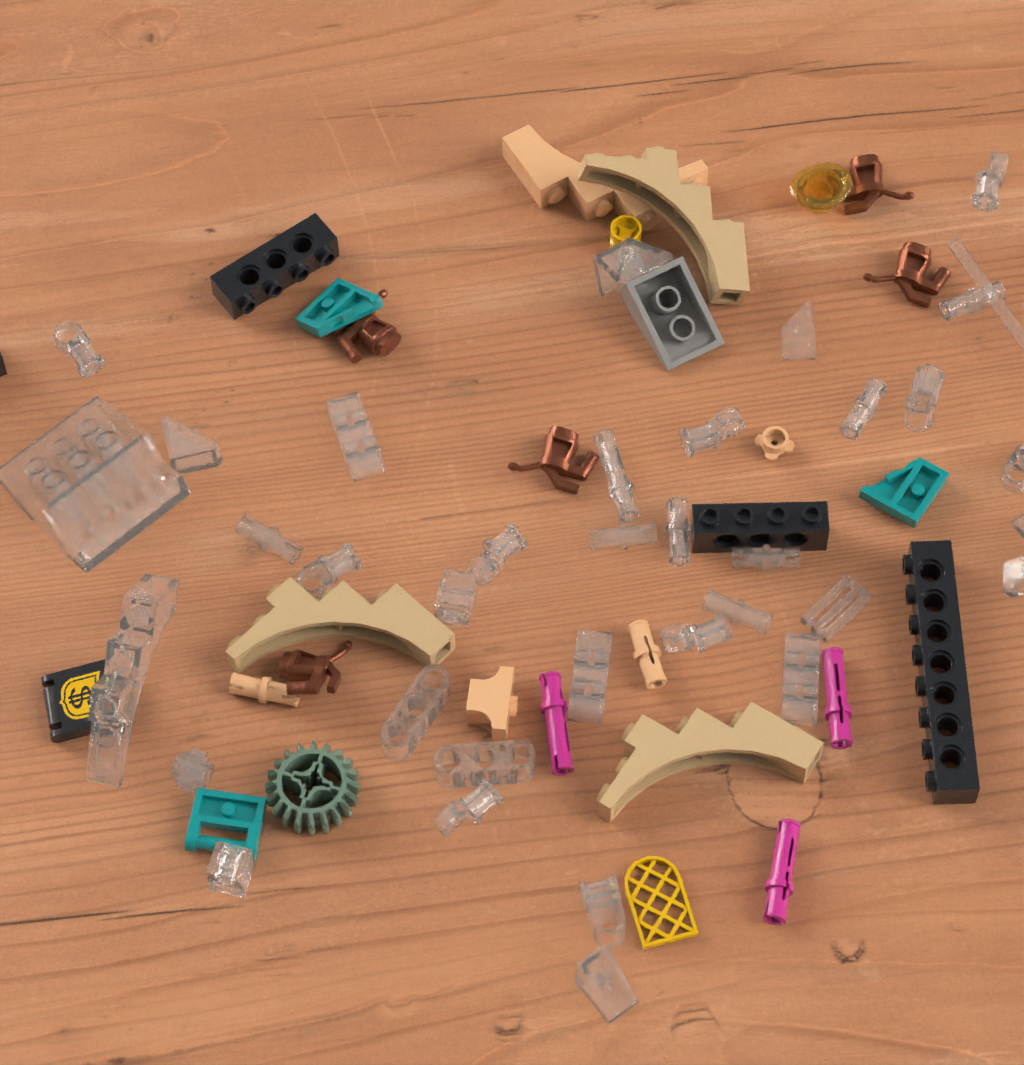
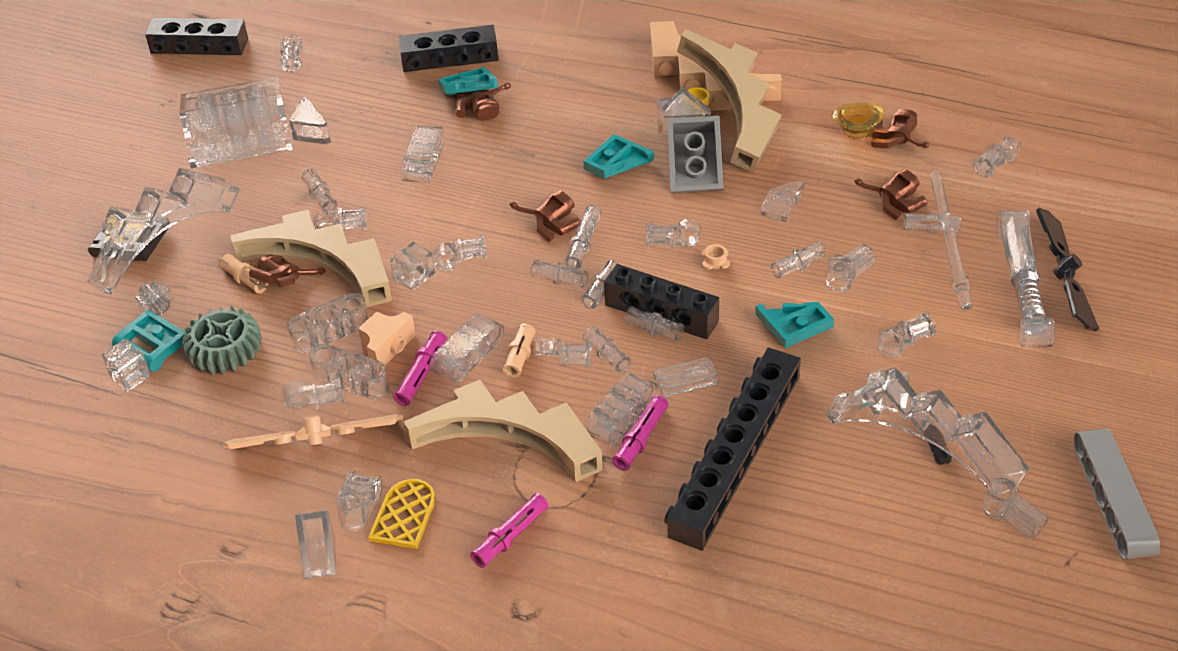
camera: 30 degrees right, 15 degrees down
(498, 854) = (313, 431): none -> light nougat piece
(582, 348) = (616, 157): none -> teal wing

